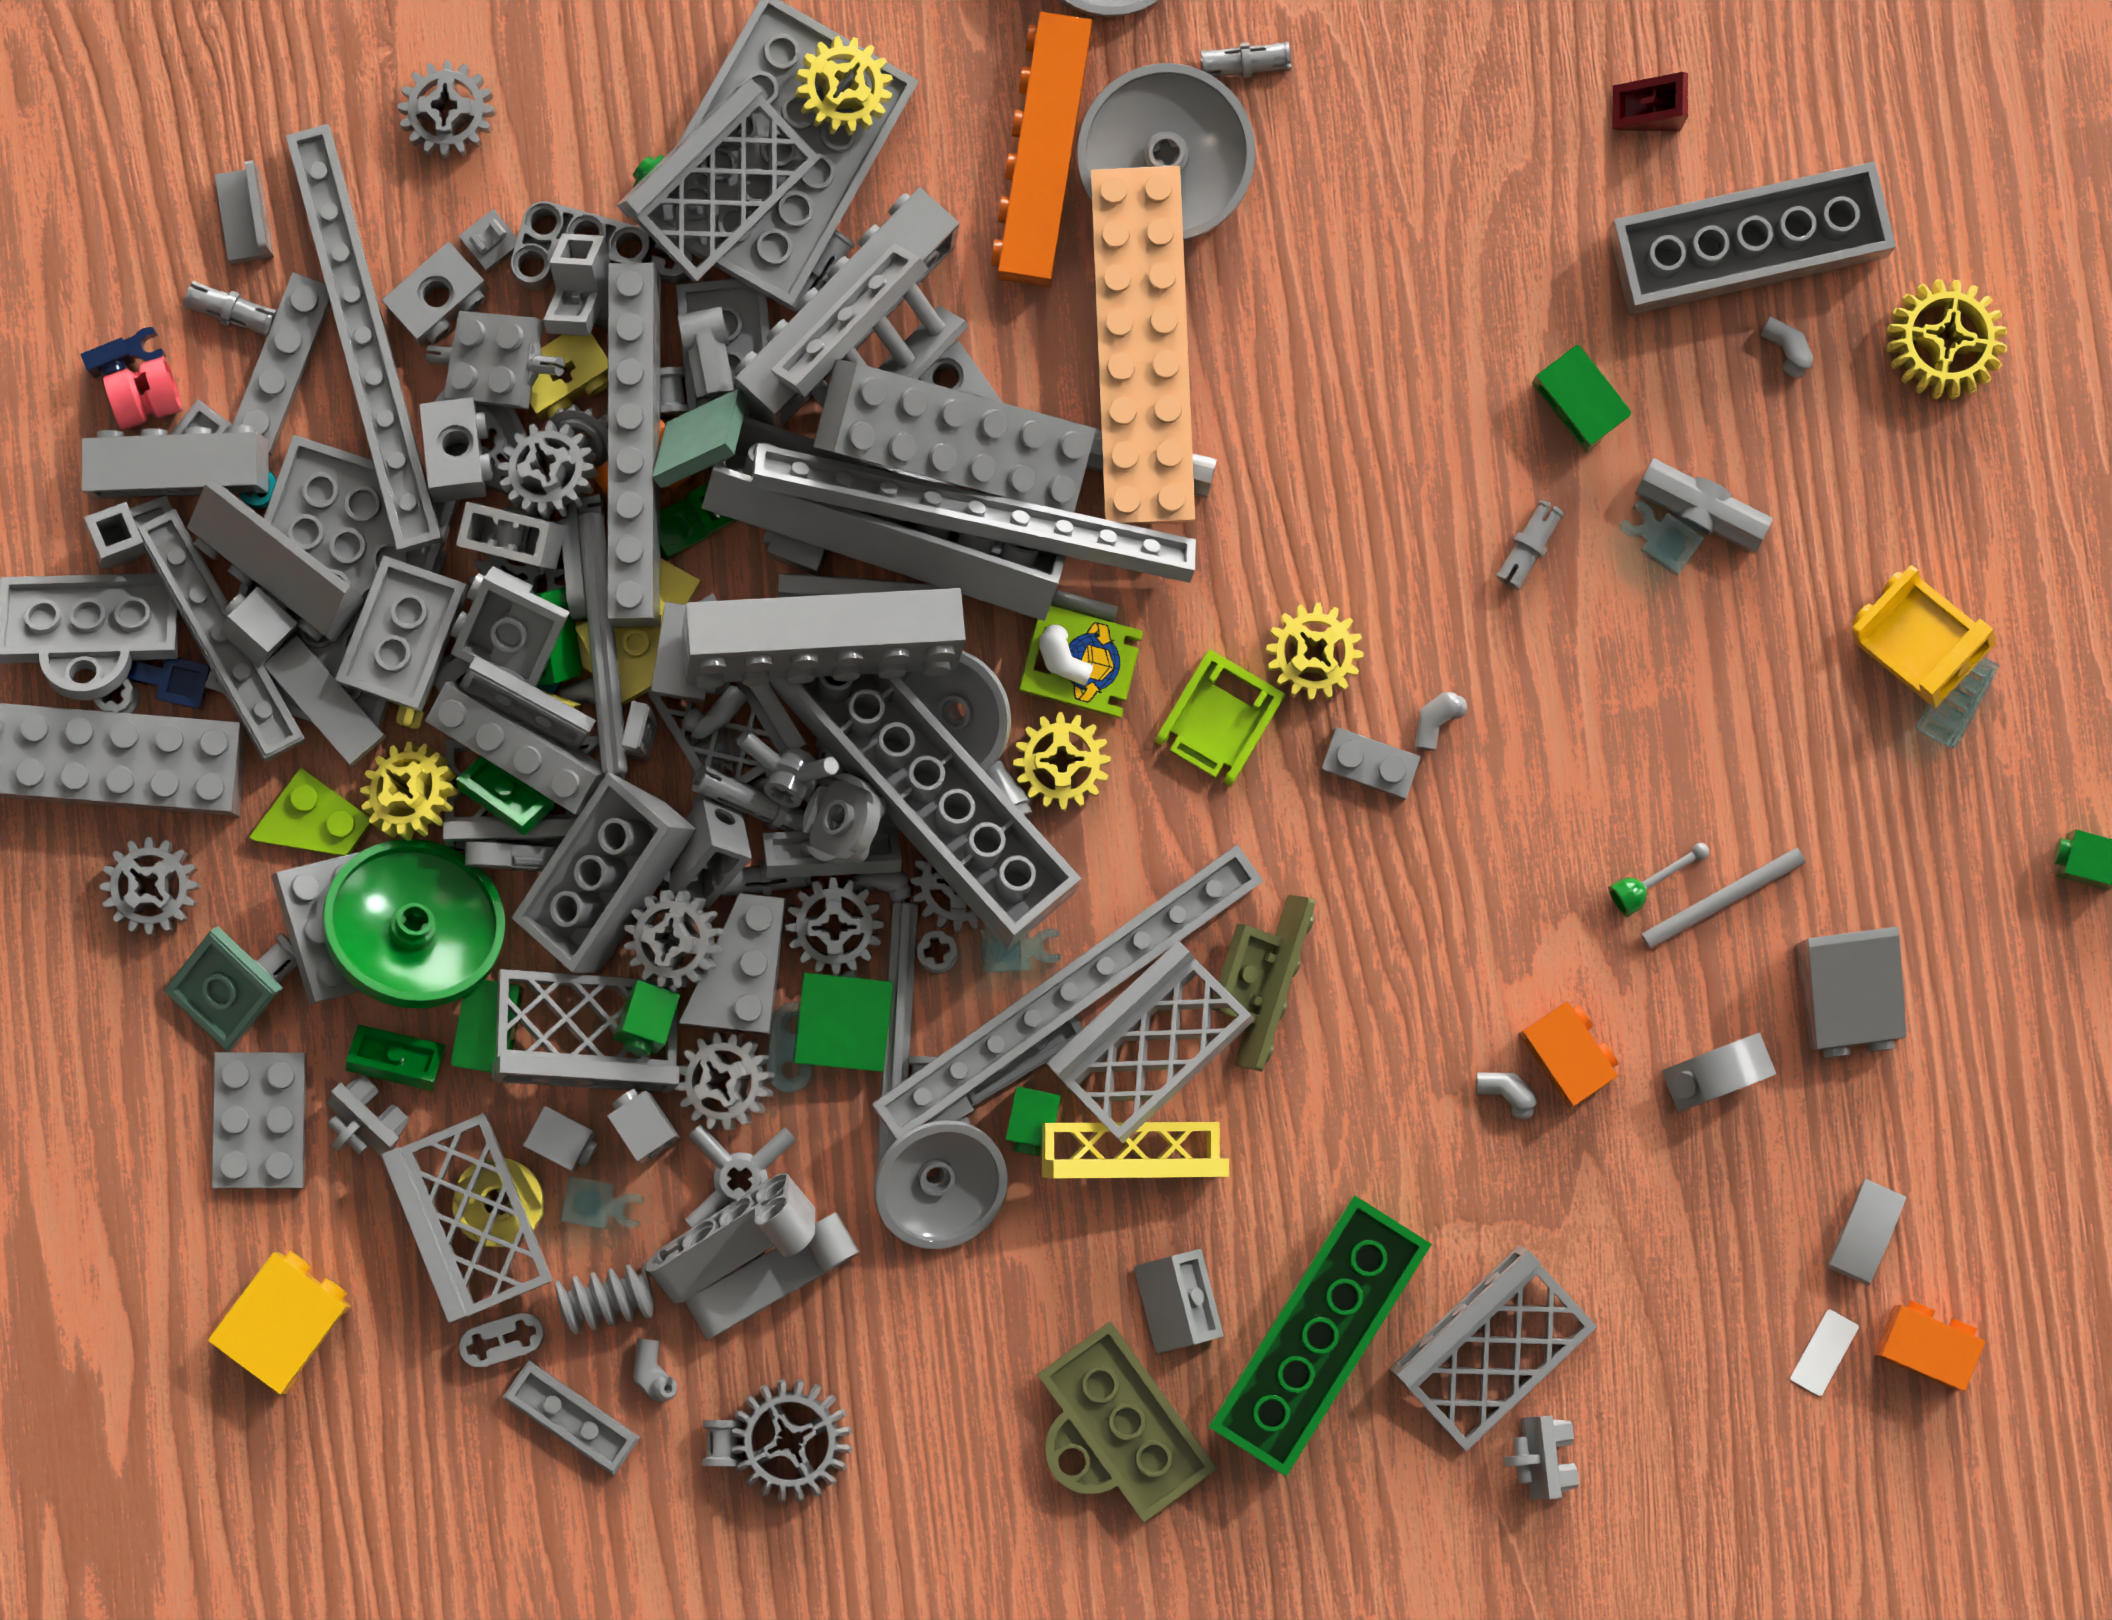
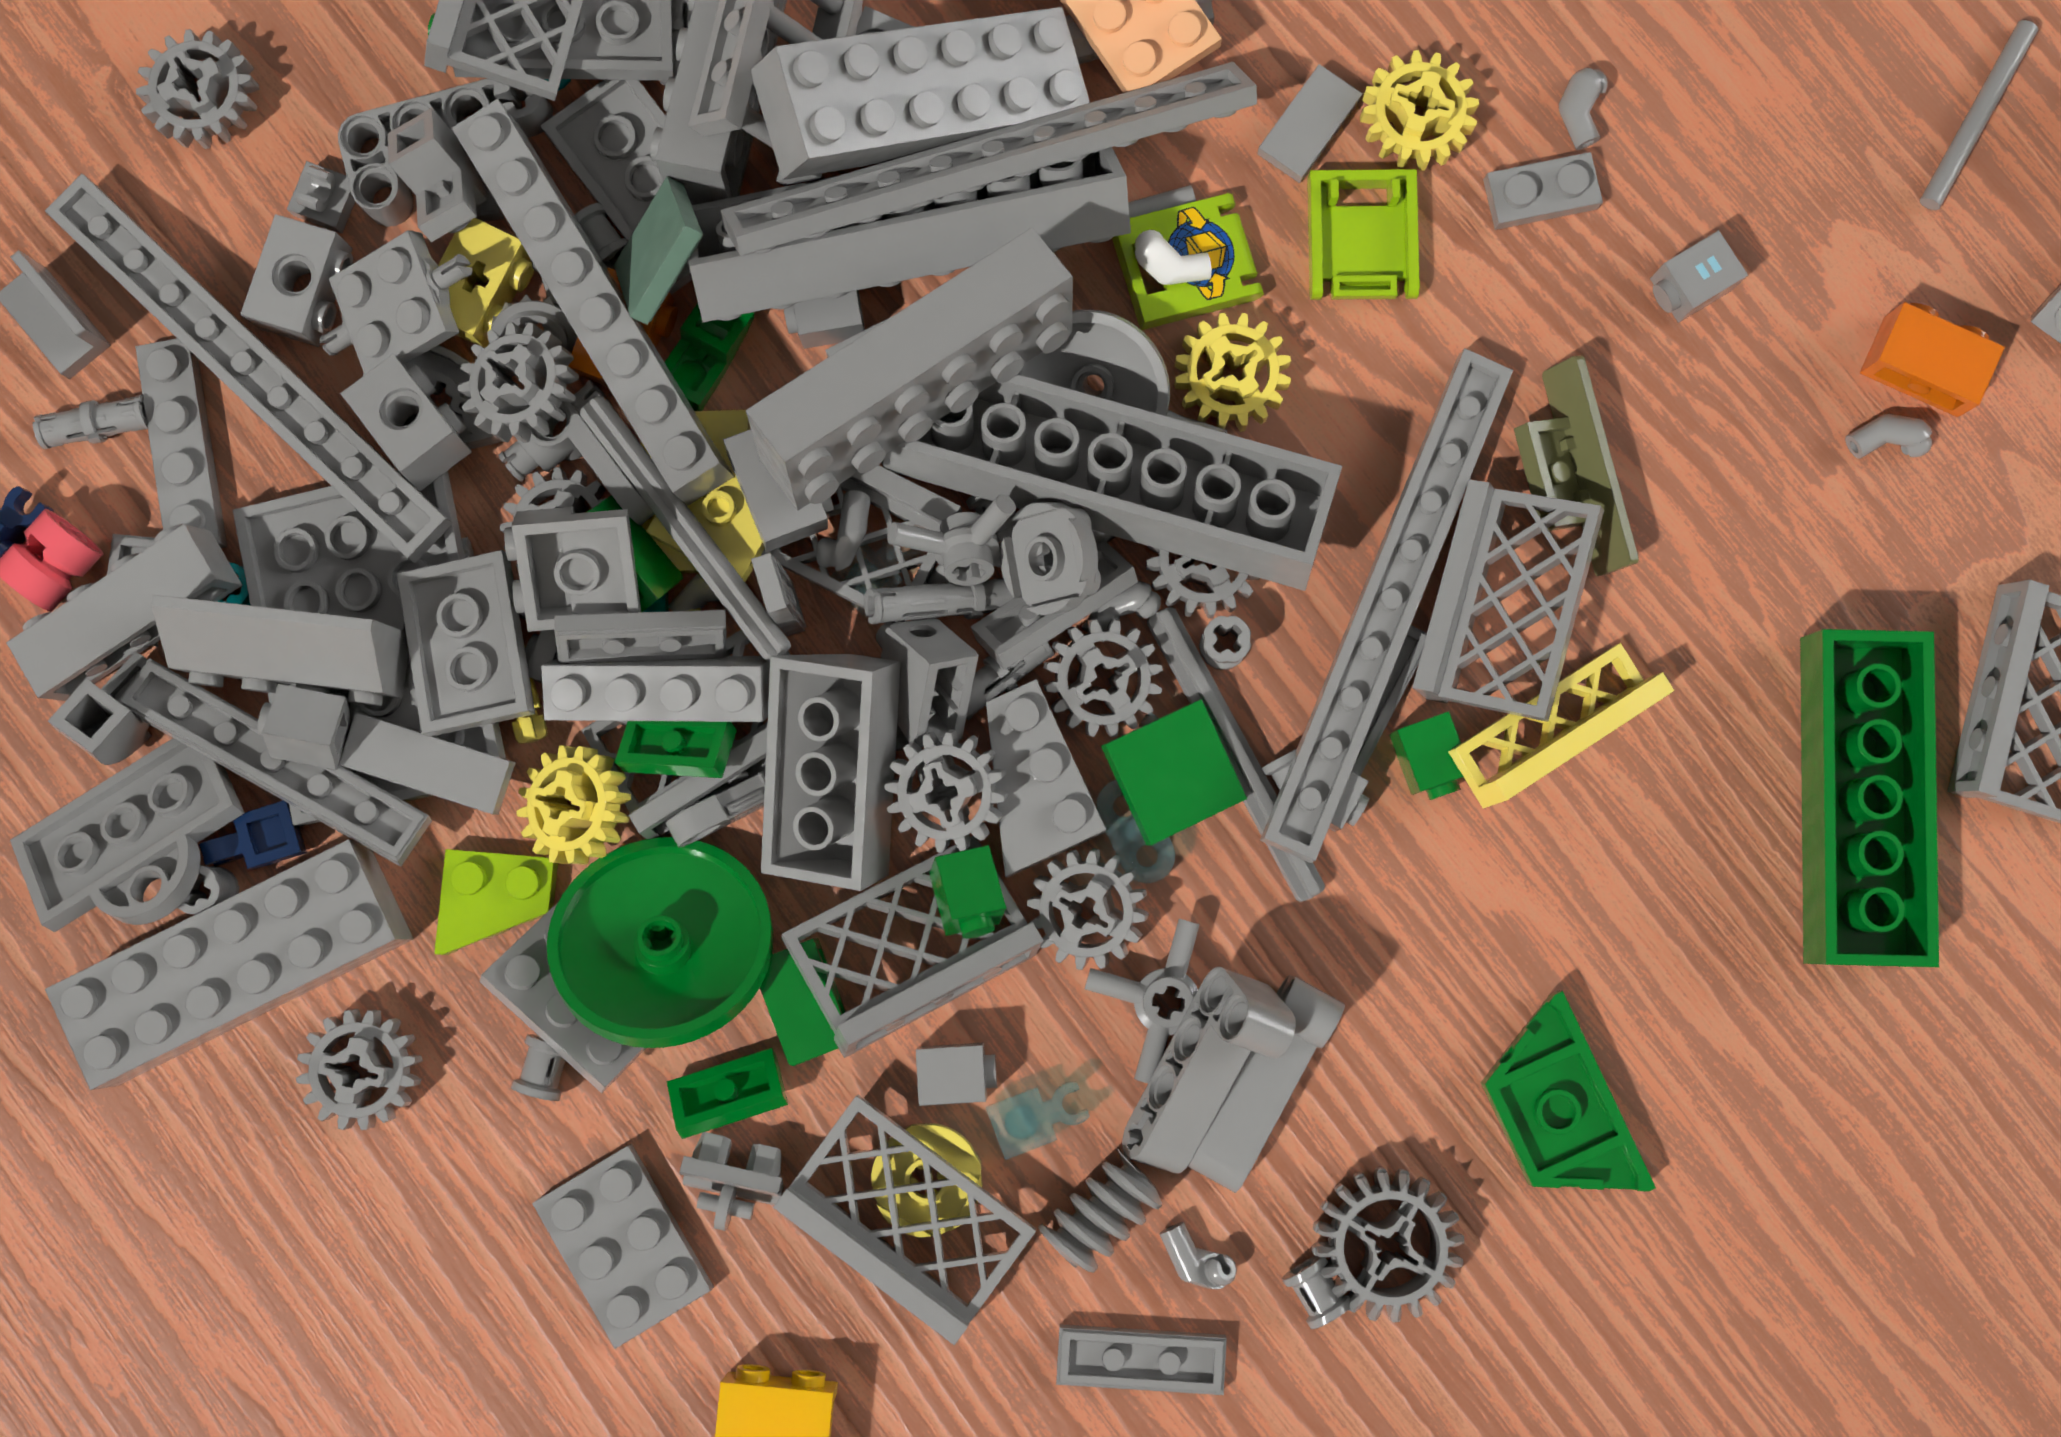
camera: 25 degrees left, 0 degrees up
(222, 989) = (500, 1131): sand green tile -> none
(506, 1350) = (1028, 1332): light grey beam -> none
(511, 535) = (518, 470): light grey brick -> none
(642, 1125) = (1032, 1007): light grey brick -> none
(705, 342) = (606, 159): light grey piece -> none
(955, 1201) = (1401, 884): light grey dish -> none
(970, 1422) = (1561, 1108): none -> green wing
(1000, 959) = (1293, 606): clear light blue plate -> none
(1120, 1427) = (1718, 1019): olive plate -> none
(1178, 1301) = (1695, 854): light grey panel -> none
(1232, 612) = (1309, 123): none -> light grey tile
(1436, 894) = (1697, 277): none -> light grey brick
(1630, 893) = (1889, 163): hinge -> none

